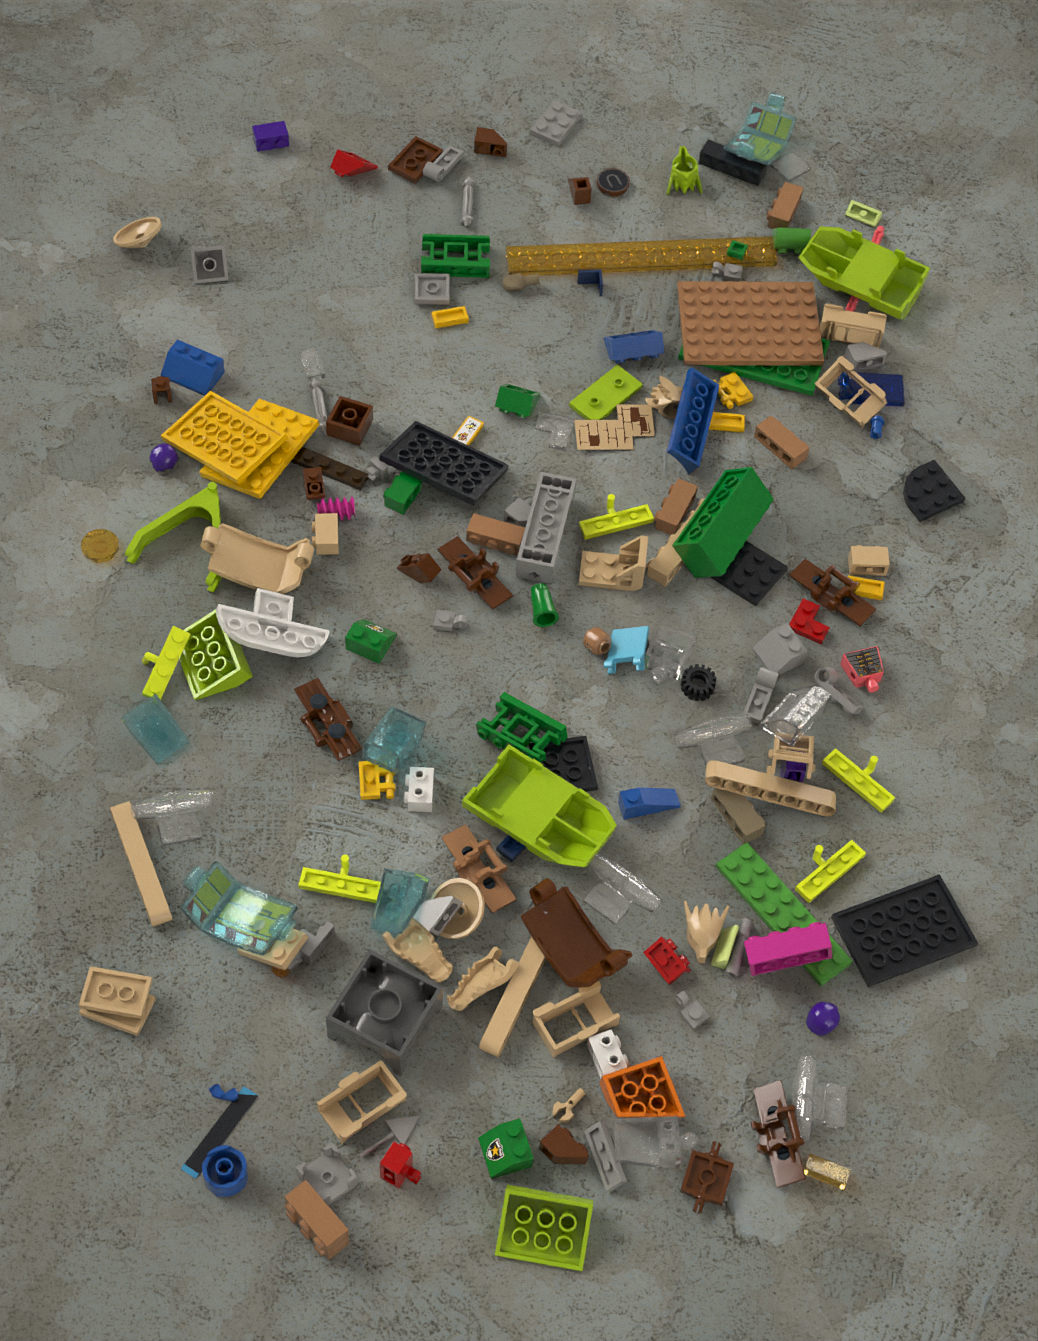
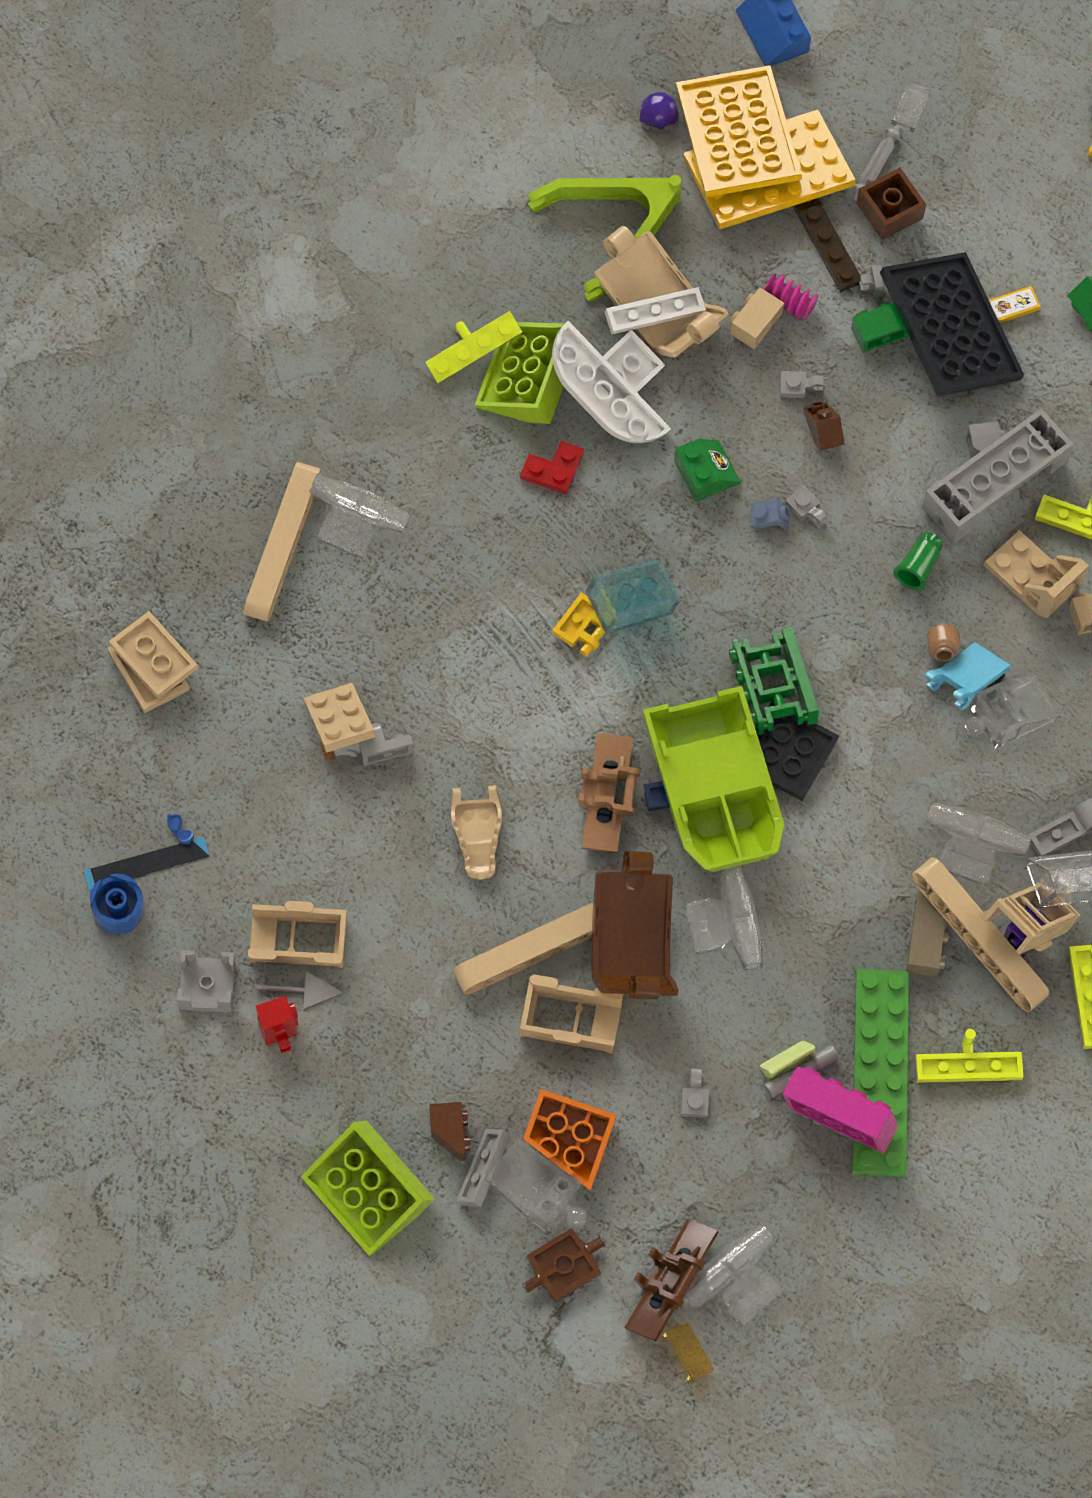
camera: 40 degrees right, 10 degrees up
(99, 545) = (514, 166): clear yellow tile -> none
(155, 729) = (407, 411): clear light blue slope -> none
(161, 384) = (722, 24): reddish brown window -> none
(235, 911) = (331, 656): clear light blue panel -> none
(262, 568) = (654, 310): none -> white plate
(280, 705) = (557, 473): none -> red plate
(313, 483) = (789, 252): reddish brown slope -> none
(316, 1220) = (159, 1014): medium nougat brick -> none
(334, 717) = (595, 524): reddish brown piece -> none
(339, 884) = (458, 707): neon yellow plate -> none
(382, 557) = (795, 384): none -> light grey plate
(384, 1008) = (387, 862): dark grey piece -> none
(398, 900) = (497, 765): clear light blue slope -> none
(420, 789) = (619, 667): white brick -> none
(431, 638) = (770, 513): none -> sand blue bracket
(437, 912) = (521, 807): light grey slope -> none
(473, 906) = (546, 816): tan dish -> none
(481, 978) = (515, 905): tan animal -> none
(485, 582) = (888, 472): reddish brown piece -> none
(495, 534) = (936, 442): medium nougat brick -> none
(506, 1149) = (395, 1087): green slope -> none
(568, 1106) = (491, 1093): tan bar -> none
(606, 1053) = (571, 1072): white brick -> none
(646, 801) = (843, 852): blue slope -> none
(667, 960) = (716, 1027): red bracket -> none
(700, 673) = (1013, 780): black tyre -> none
(703, 929) = (779, 1025): tan piece -> none
(823, 1018) = (822, 1205): dark purple hair -> none
(904, 930) = (990, 1184): black plate -> none

